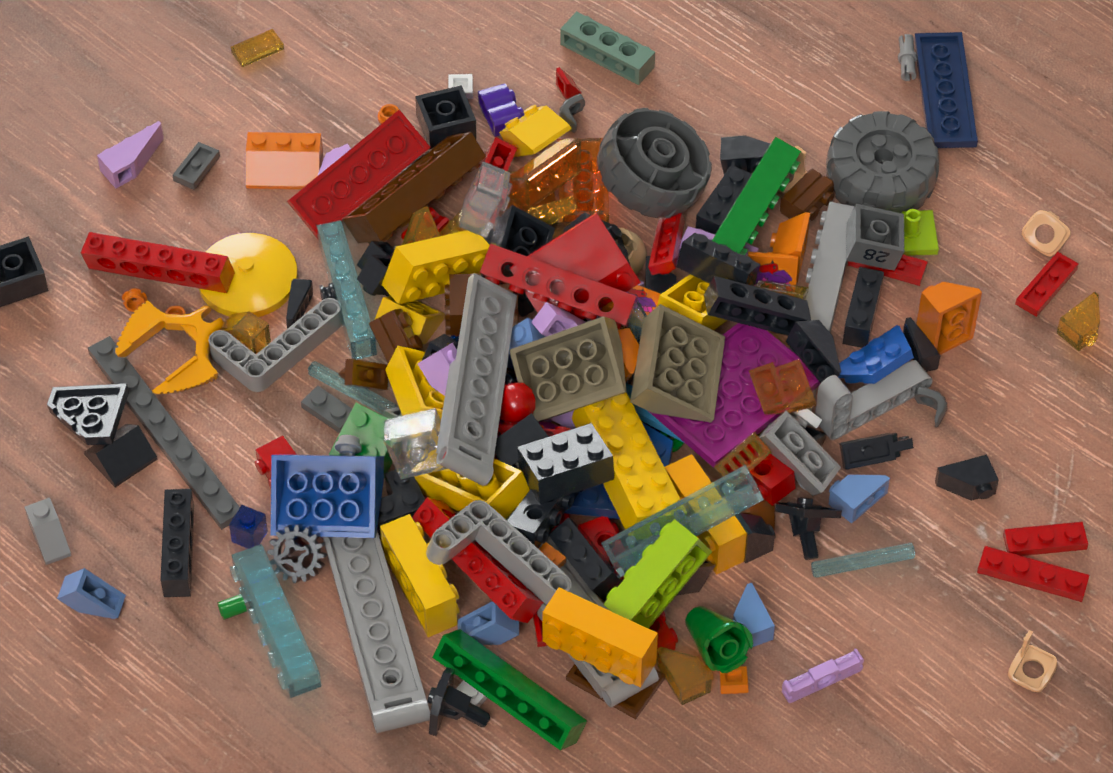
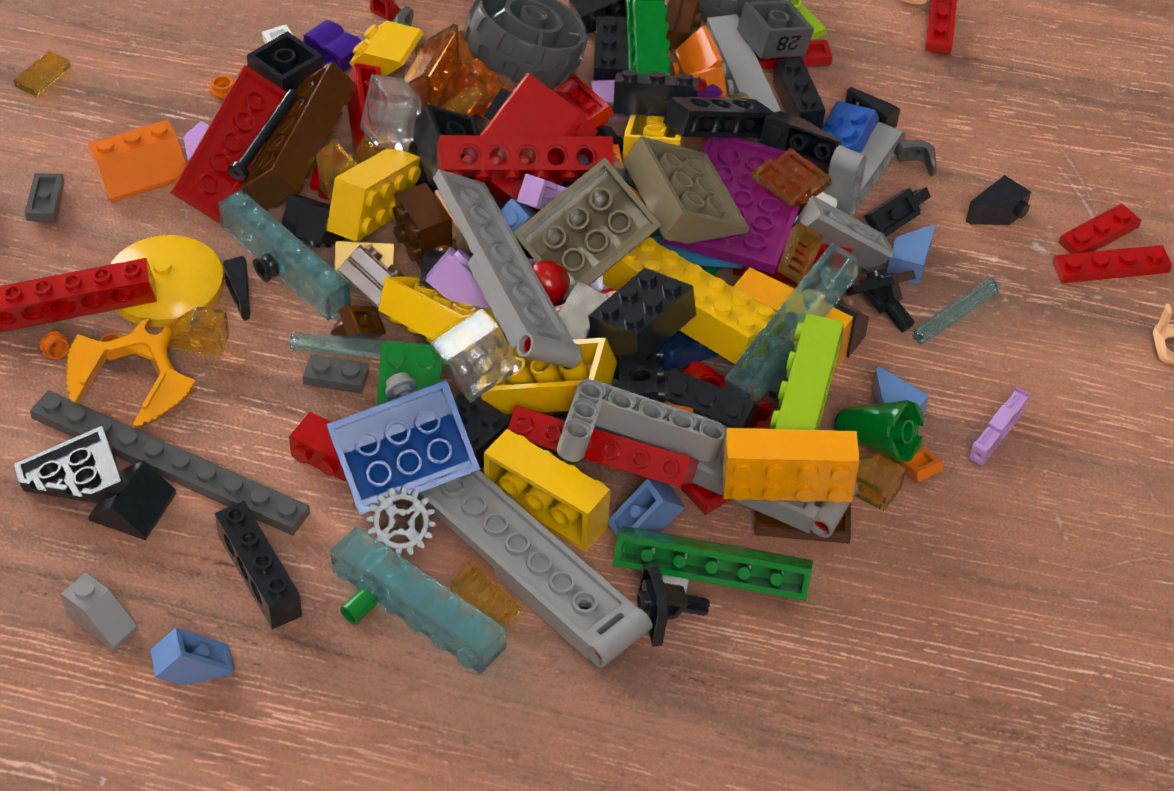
camera: 30 degrees left, 5 degrees down
(248, 527) = (327, 518): clear blue brick -> none
(279, 354) = (239, 362): light grey beam -> none
(322, 623) = (473, 579): none -> clear yellow slope
(351, 200) = (239, 170): none -> black bar
(948, 314) = (889, 65): orange slope -> none
(1081, 323) = (997, 44): clear yellow slope -> none

